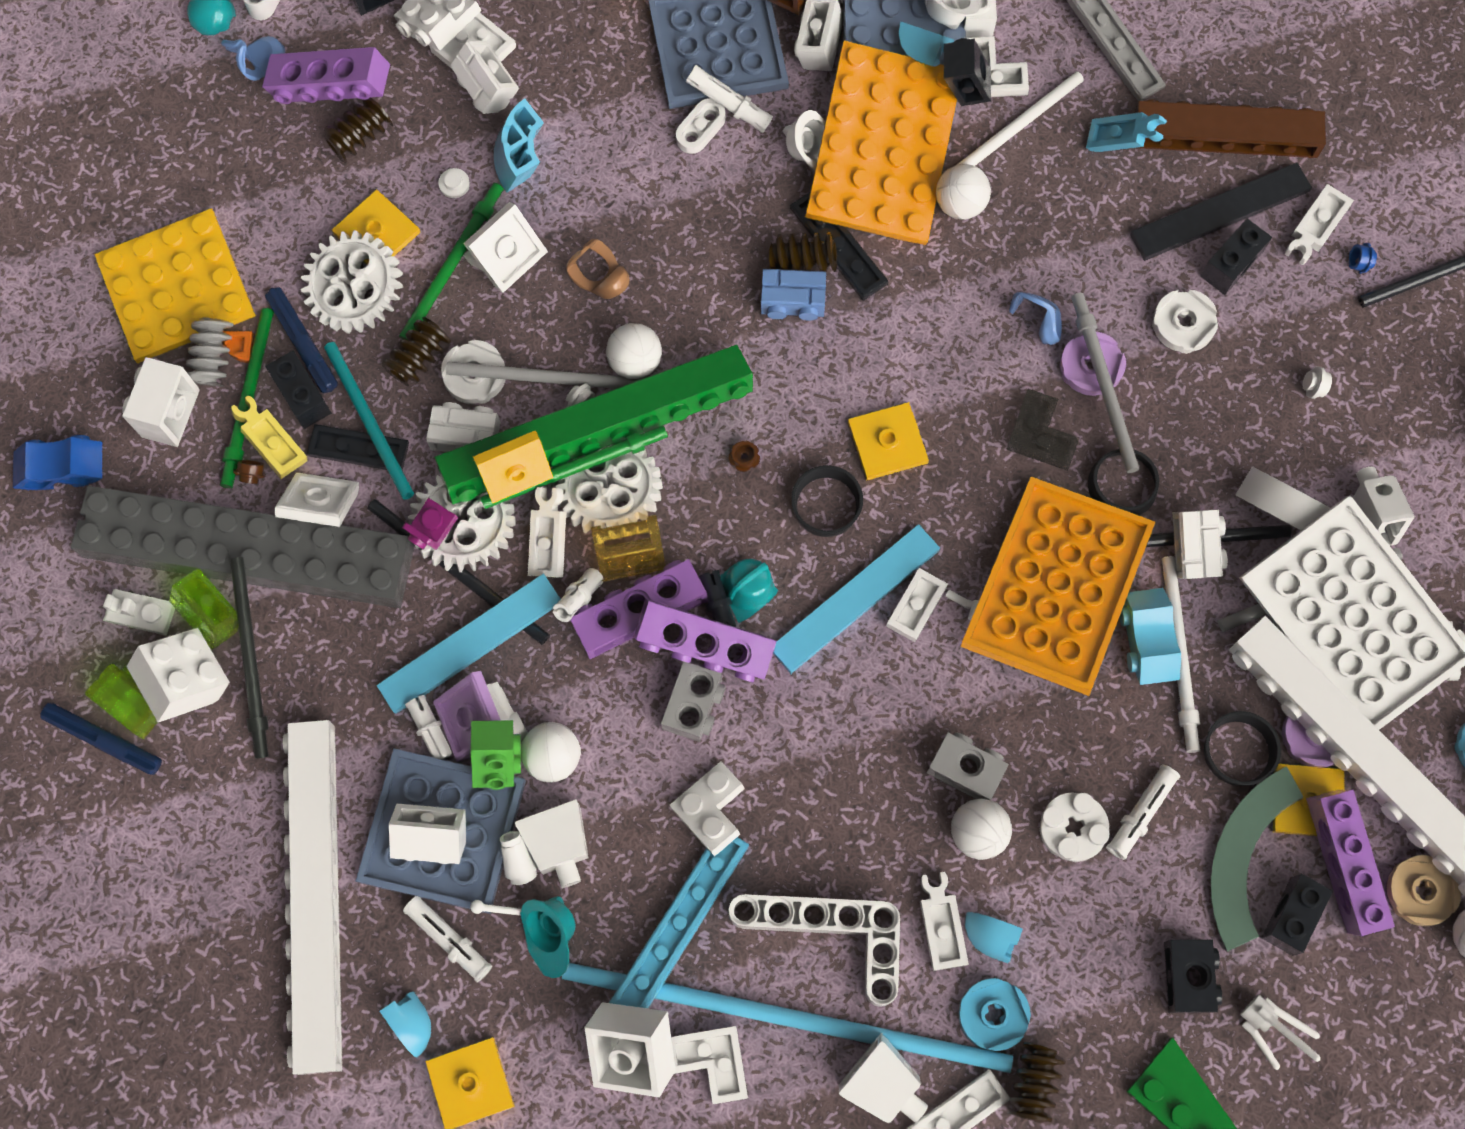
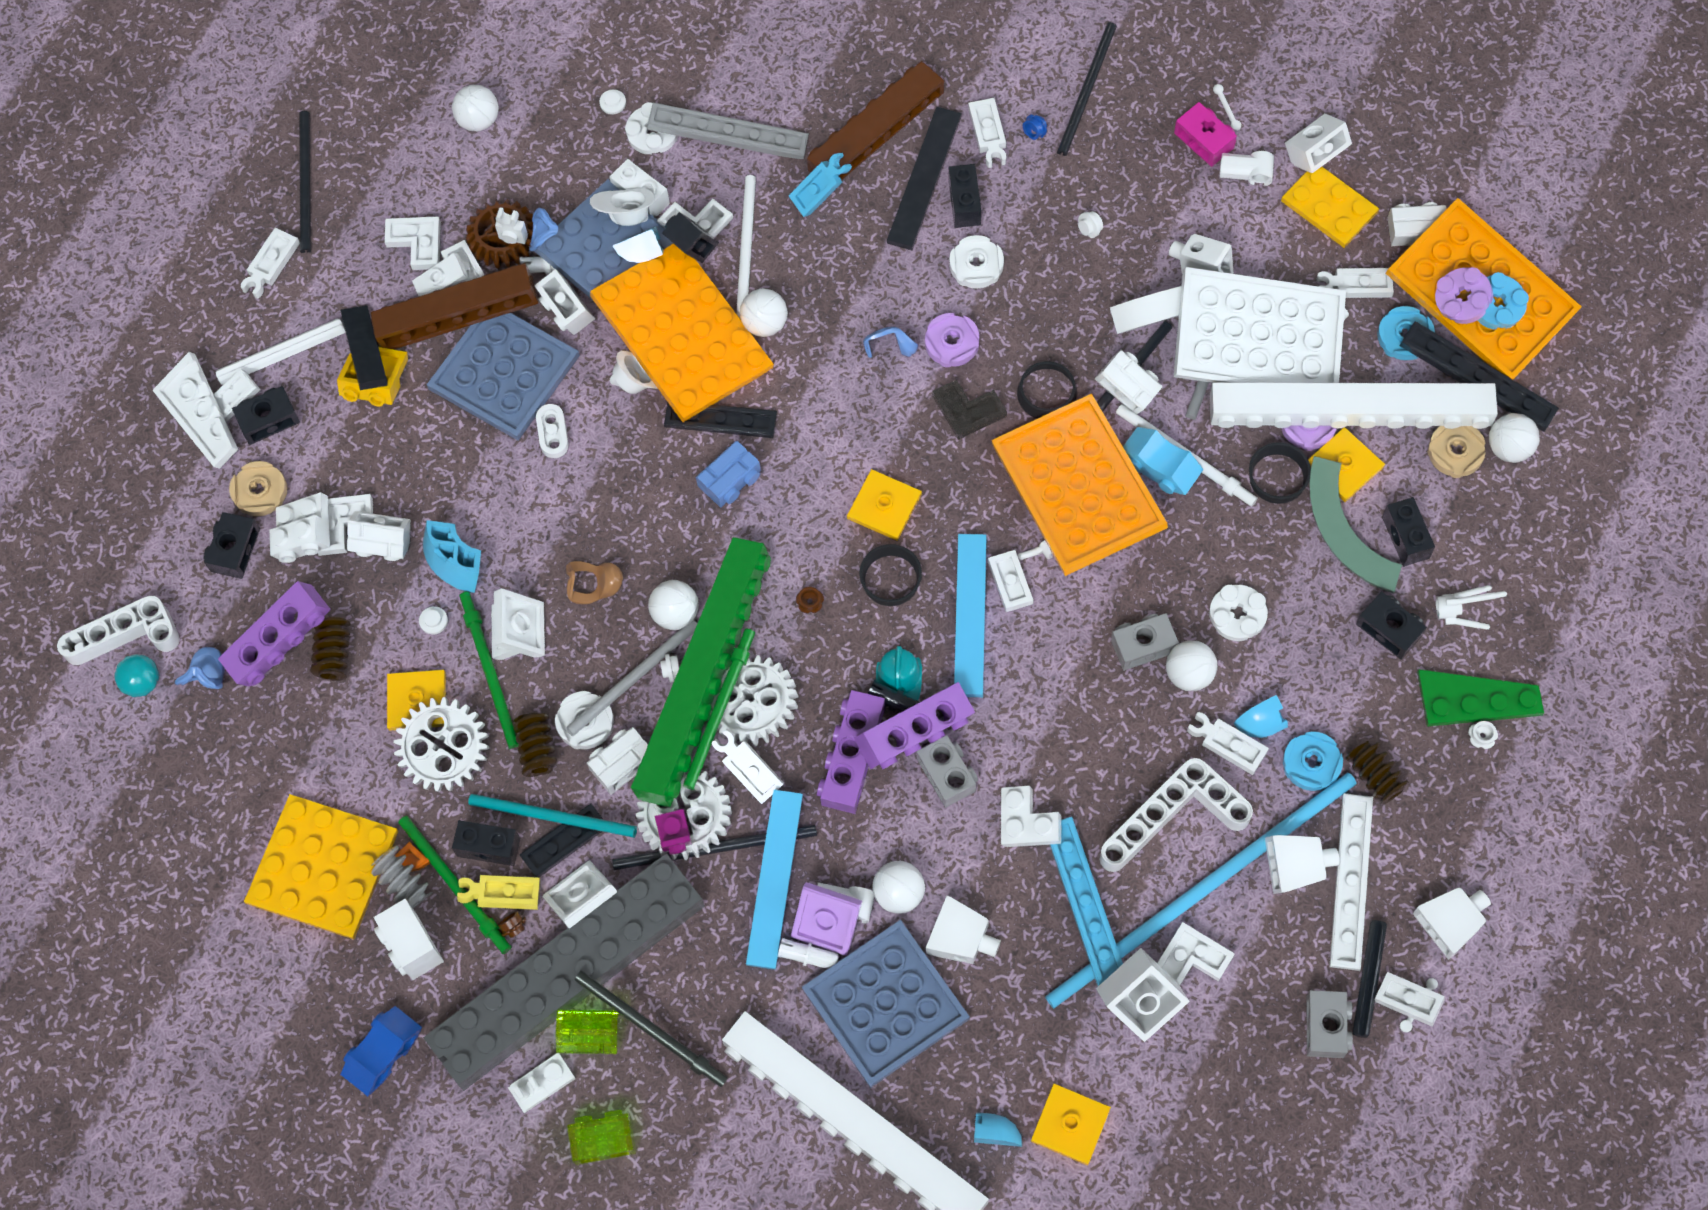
camera: 45 degrees left, 5 degrees down
(101, 739) = (610, 1180): dark blue axle -> none
(177, 674) = (619, 1085): white brick -> none
(301, 340) = (444, 812): dark blue axle -> none
(427, 833) = (885, 1006): white brick -> none
(476, 967) = (962, 1059): white pin -> none
(477, 907) = (993, 992): white hinge -> none
(494, 754) = (871, 919): bright green brick -> none
(513, 466) = (690, 740): yellow plate -> none
(517, 860) = (951, 968): white cone -> none
(547, 933) = (1019, 991): teal piece -> none
(577, 595) = (808, 780): white pin -> none
(629, 557) = (813, 725): clear yellow plate -> none
(725, 96) = (560, 395): white pin -> none
(803, 253) = (709, 442): dark brown piece -> none
(1087, 325) = (925, 319): light grey bar -> none
(1135, 823) = (1269, 575): white pin -> none
(1350, 862) = (1404, 472): medium lavender brick -> none

